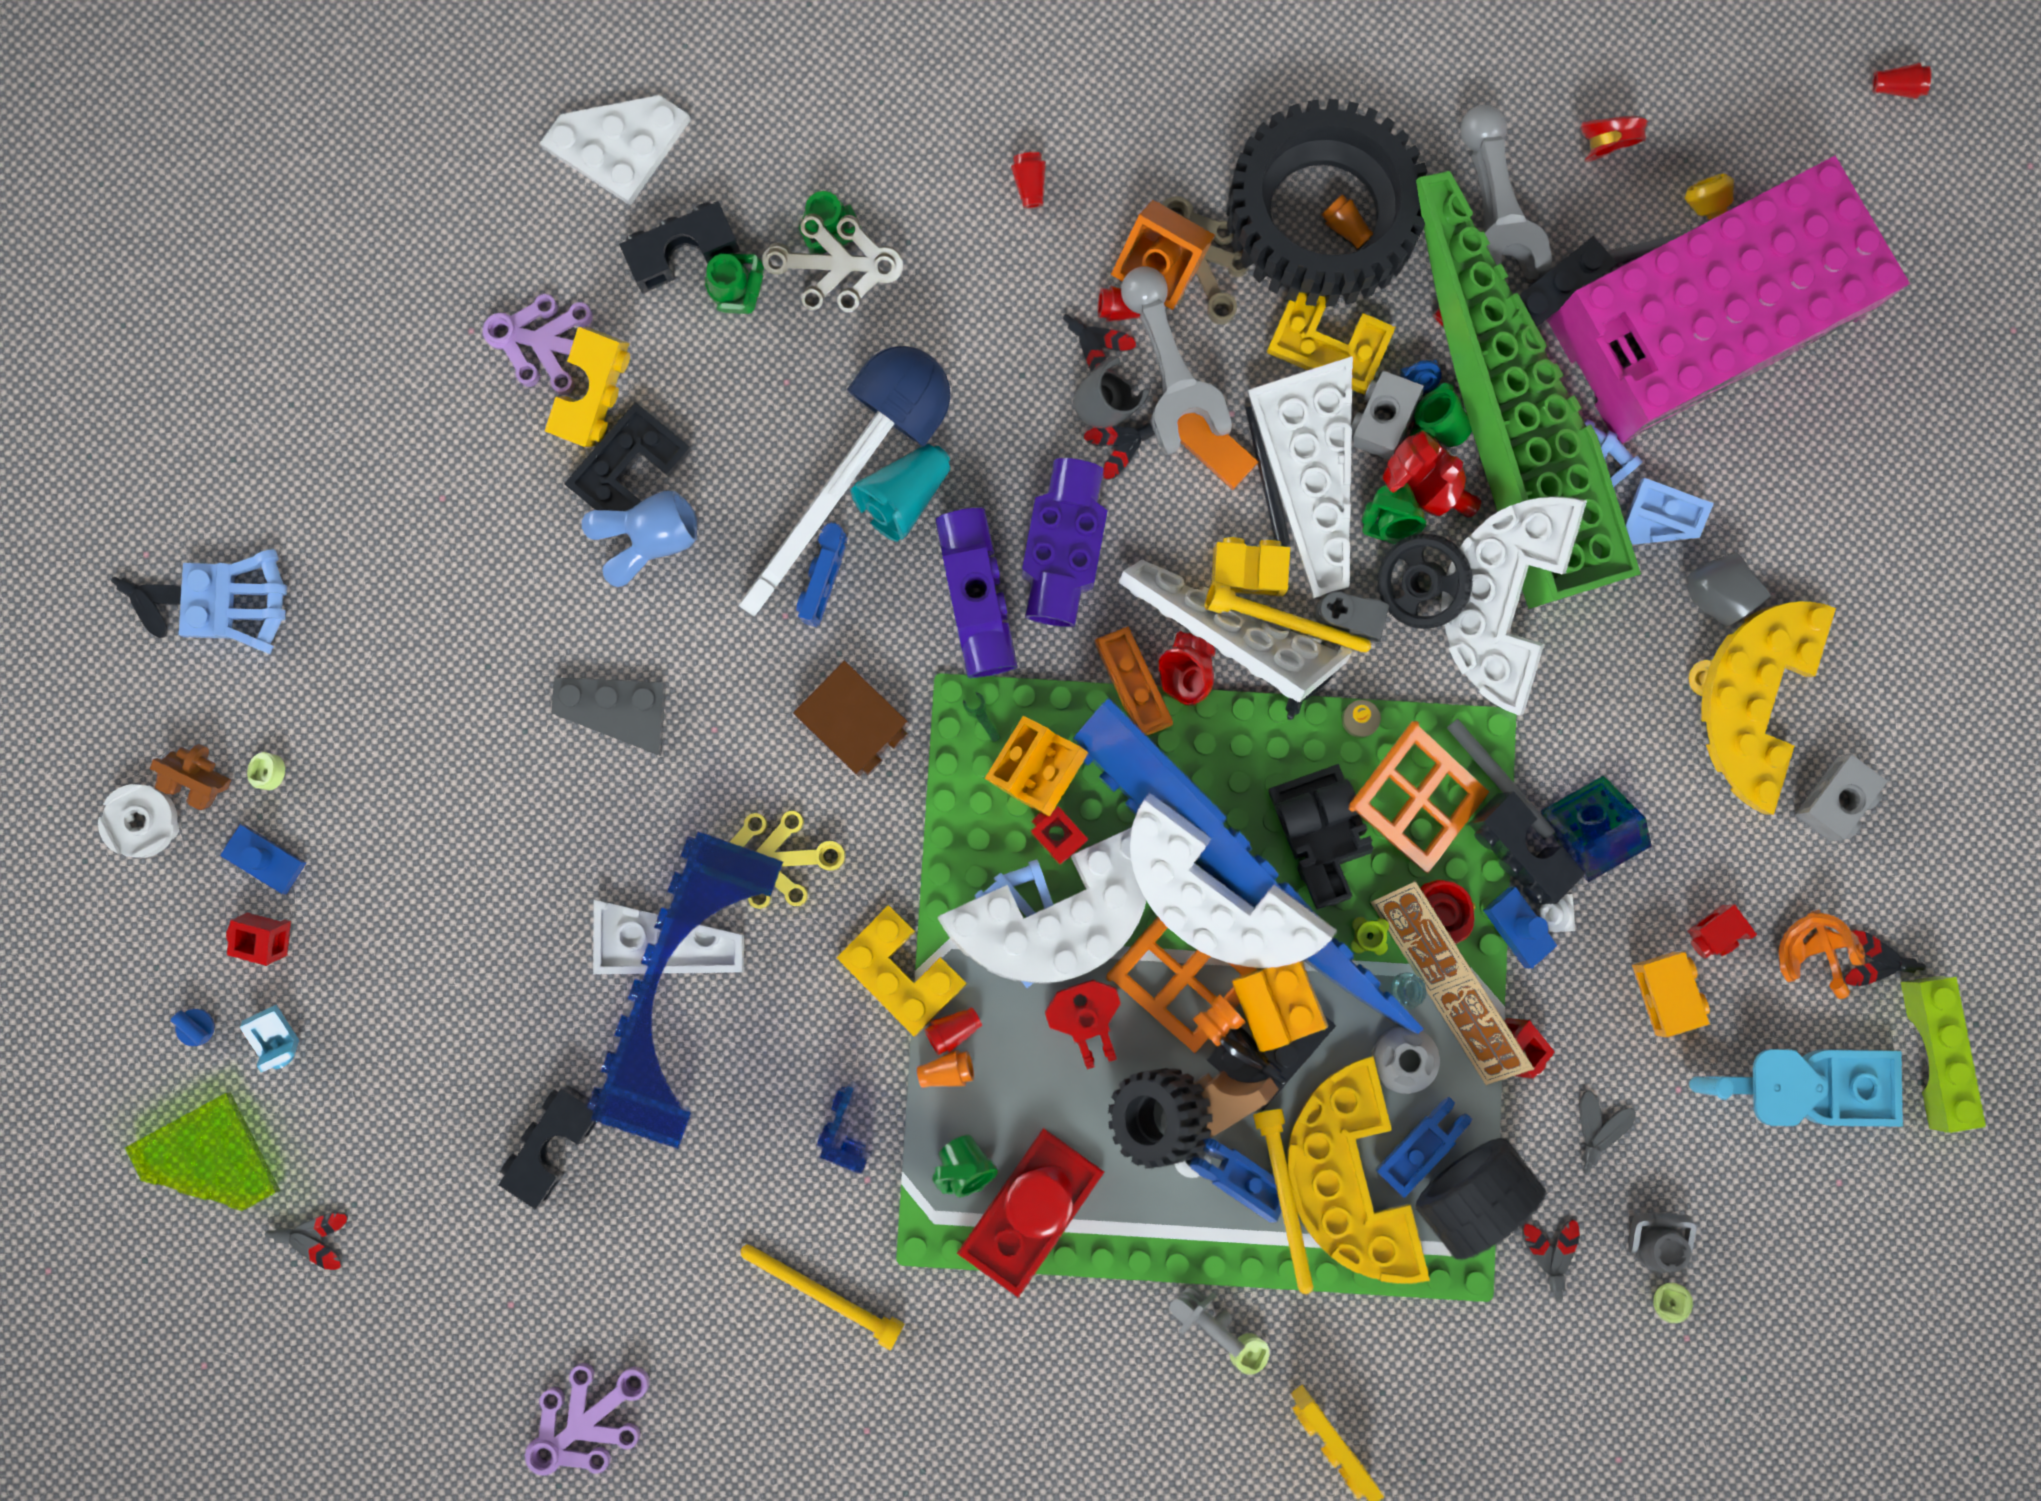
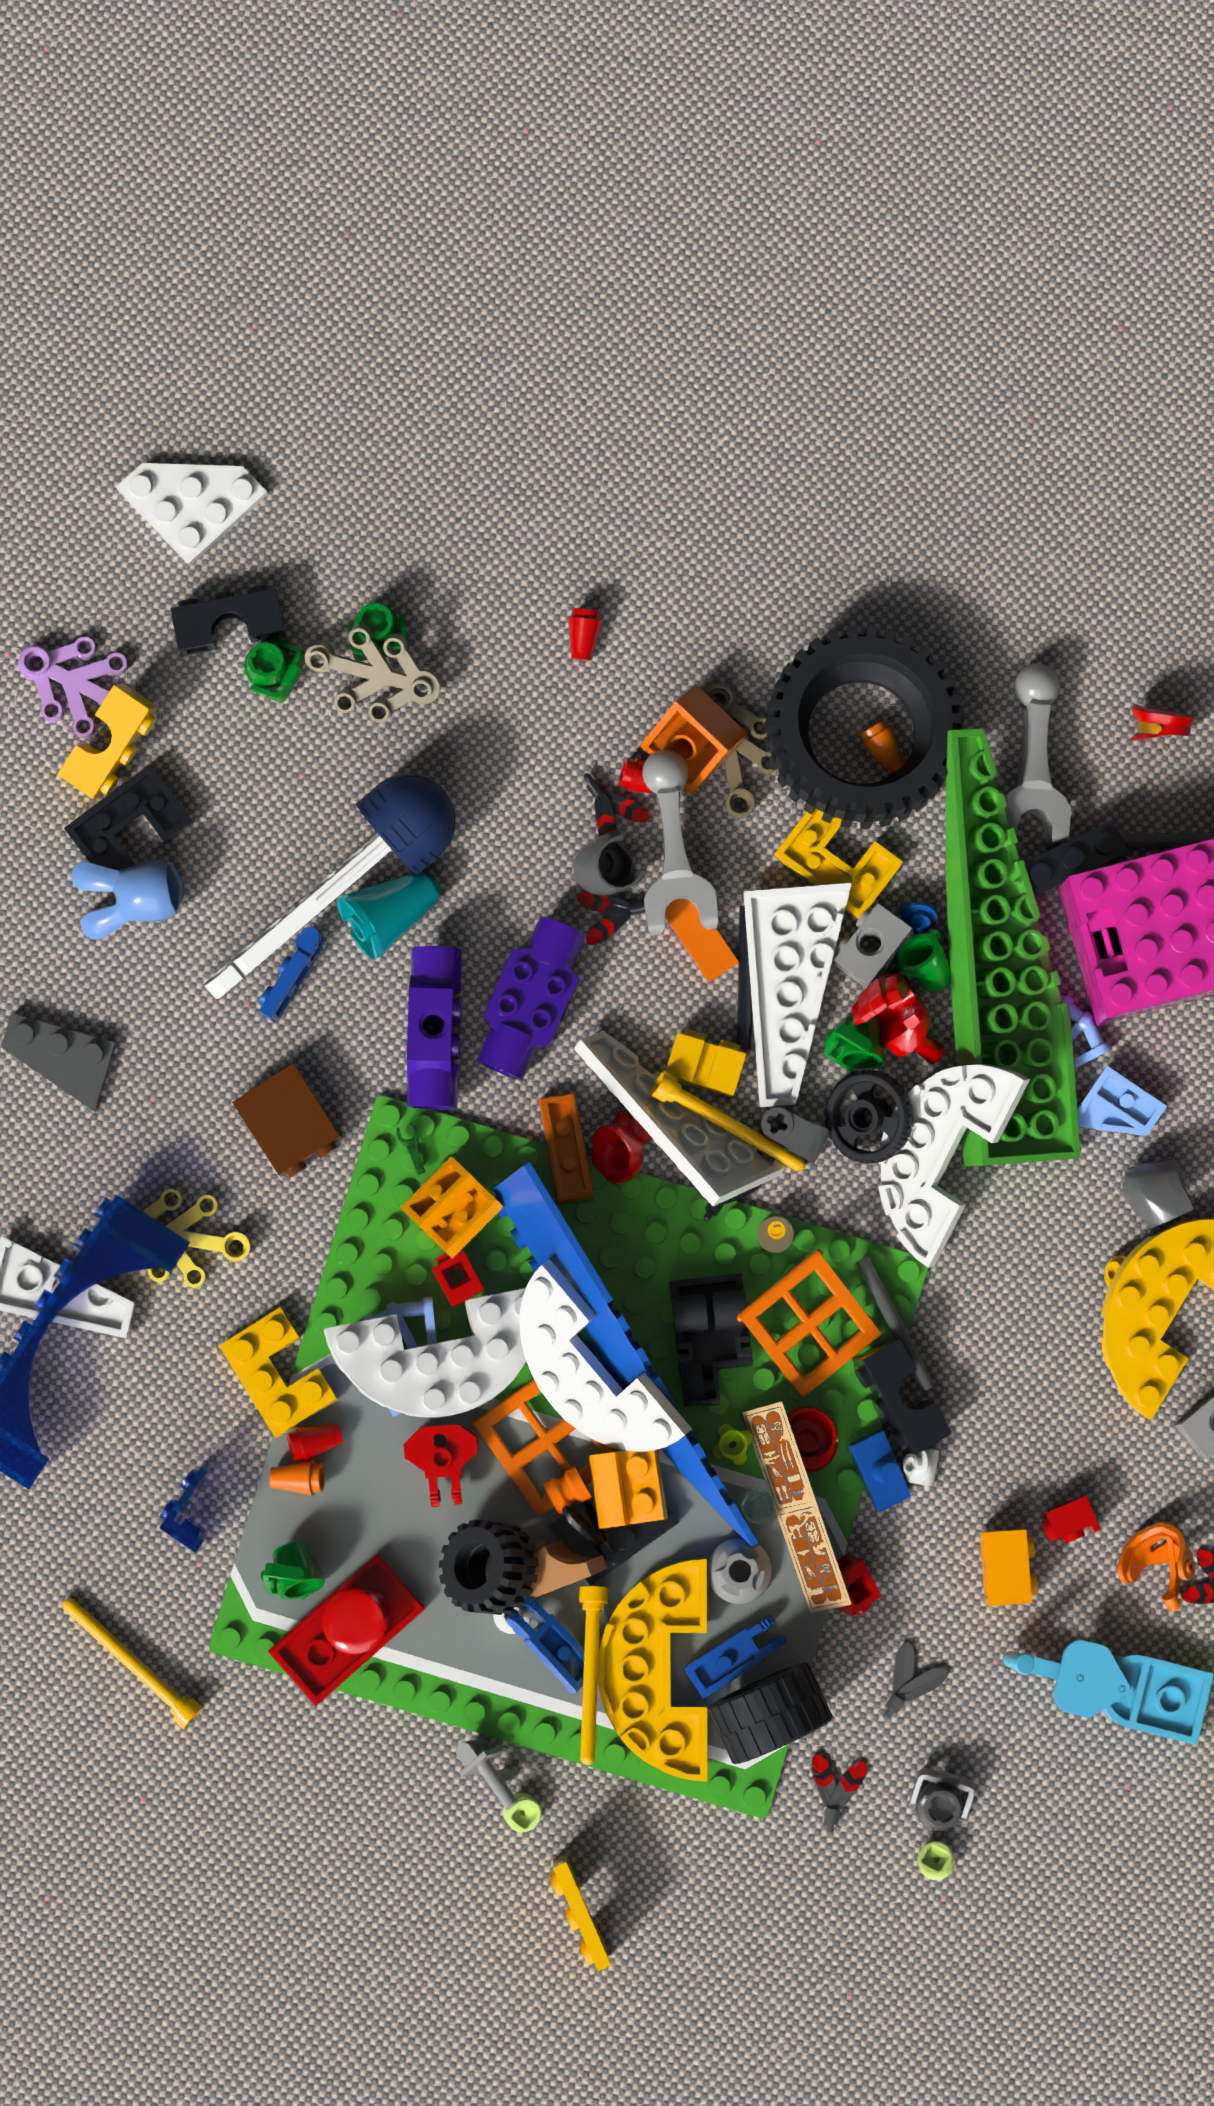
camera: 10 degrees right, 0 degrees up
(1598, 827) = (976, 1393): slope -> none

